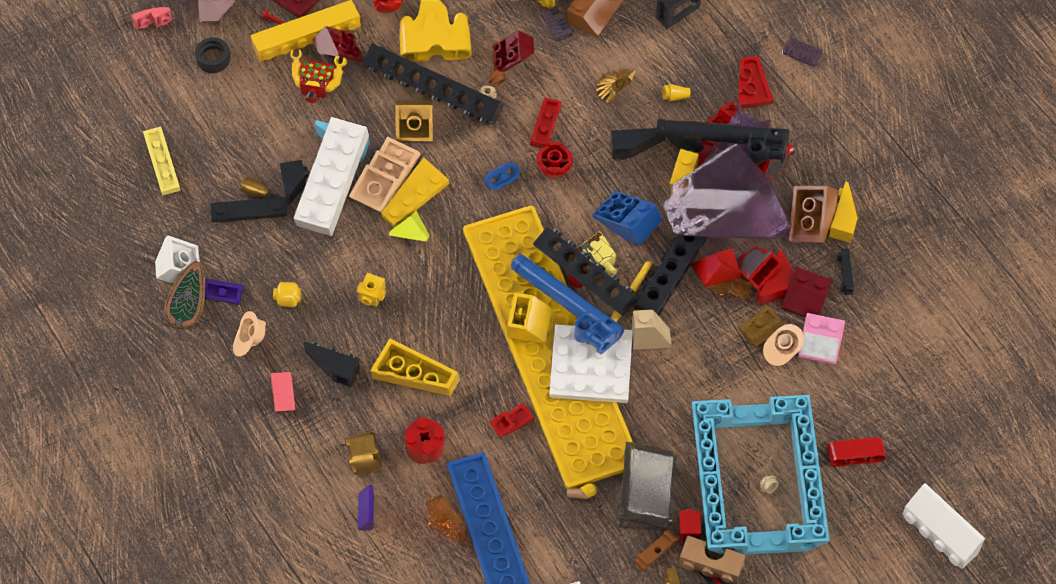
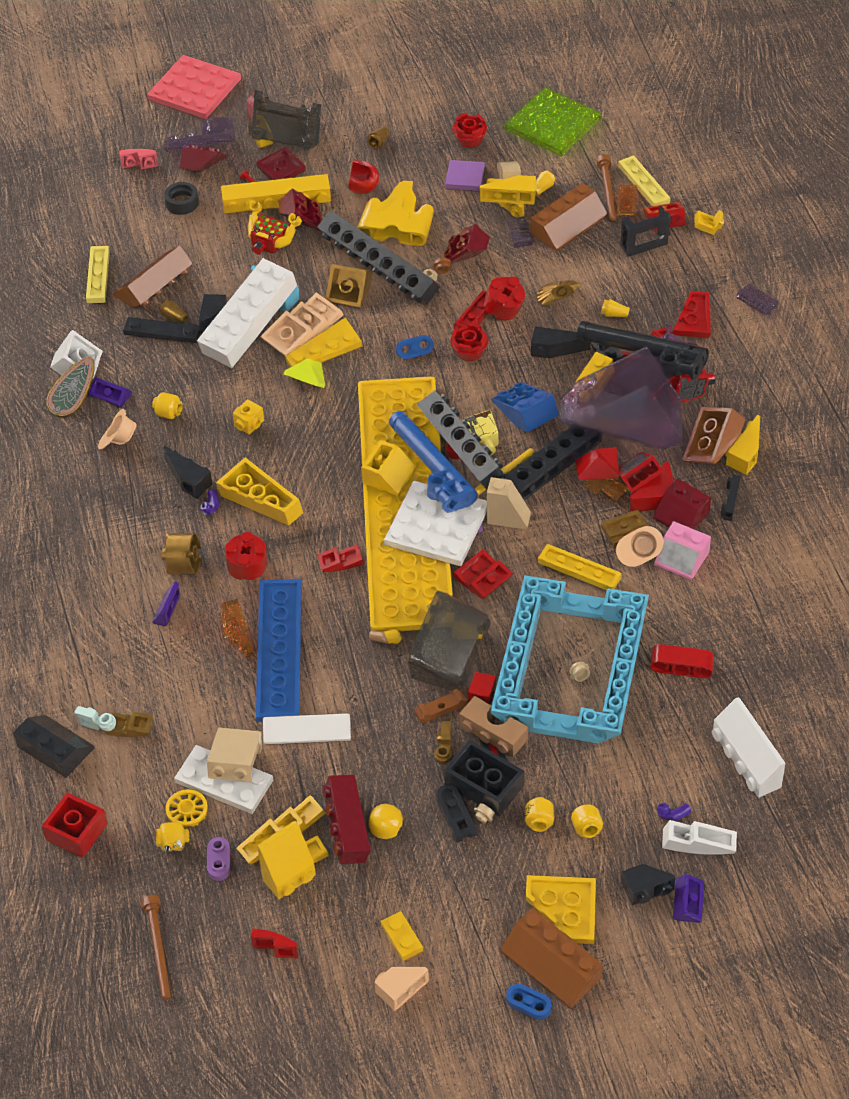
camera: 20 degrees right, 10 degrees down
(219, 153) = (154, 277): none -> slope
(282, 391) = (128, 487): coral slope -> none
(370, 389) = (213, 504): none -> dark purple arm
(571, 104) = (504, 298): none -> red brick
(648, 405) = (482, 574): none -> red slope
(734, 378) = (579, 567): none -> yellow plate

